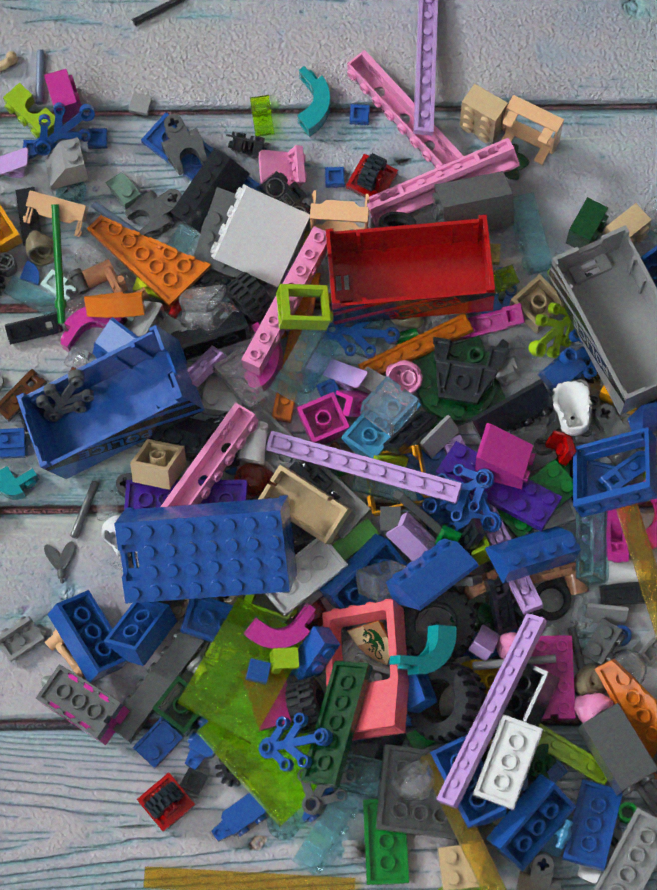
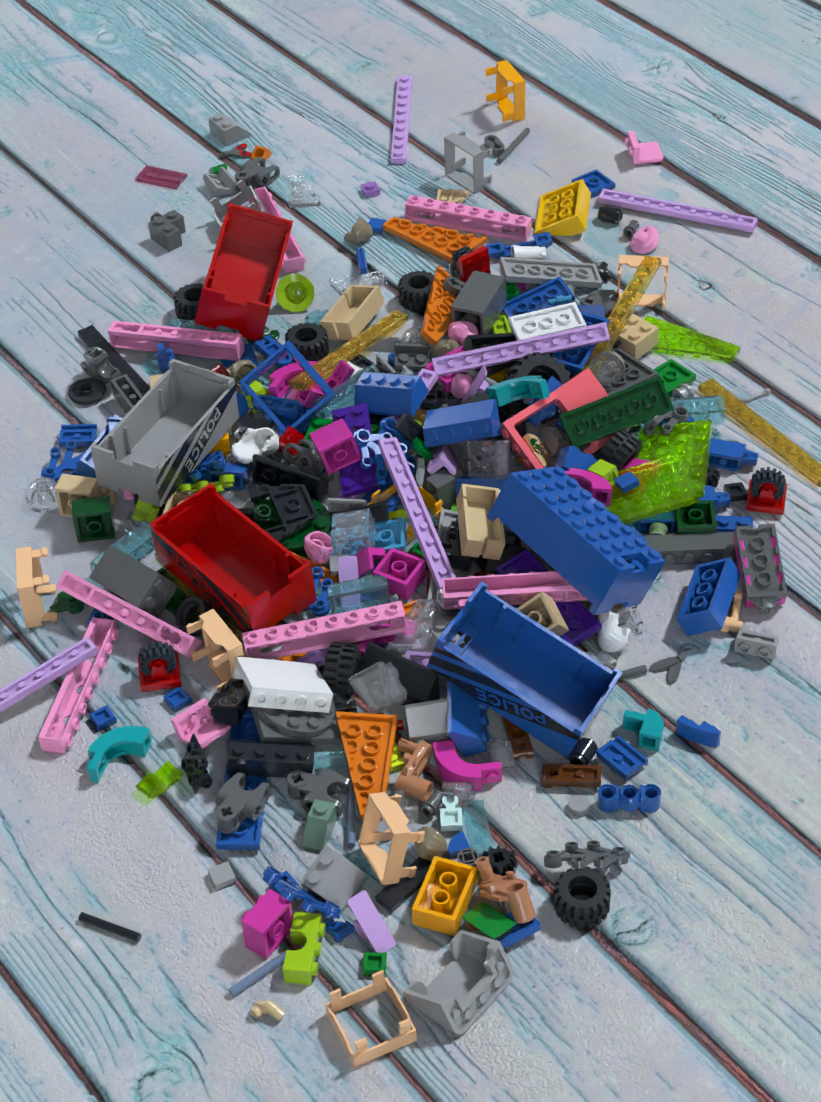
camera: 130 degrees left, 30 degrees down
(33, 328) = (505, 803): black plate -> none
(55, 411) = (529, 690): dark grey plant -> none
(60, 302) = (465, 787): green bar -> none
(115, 305) = (434, 738): orange slope -> none
(141, 631) = (680, 568): blue slope -> none
(291, 742) = (654, 430): blue plant -> none
(297, 322) = (328, 610): lime window -> none
(482, 114) = (44, 619): tan brick -> none

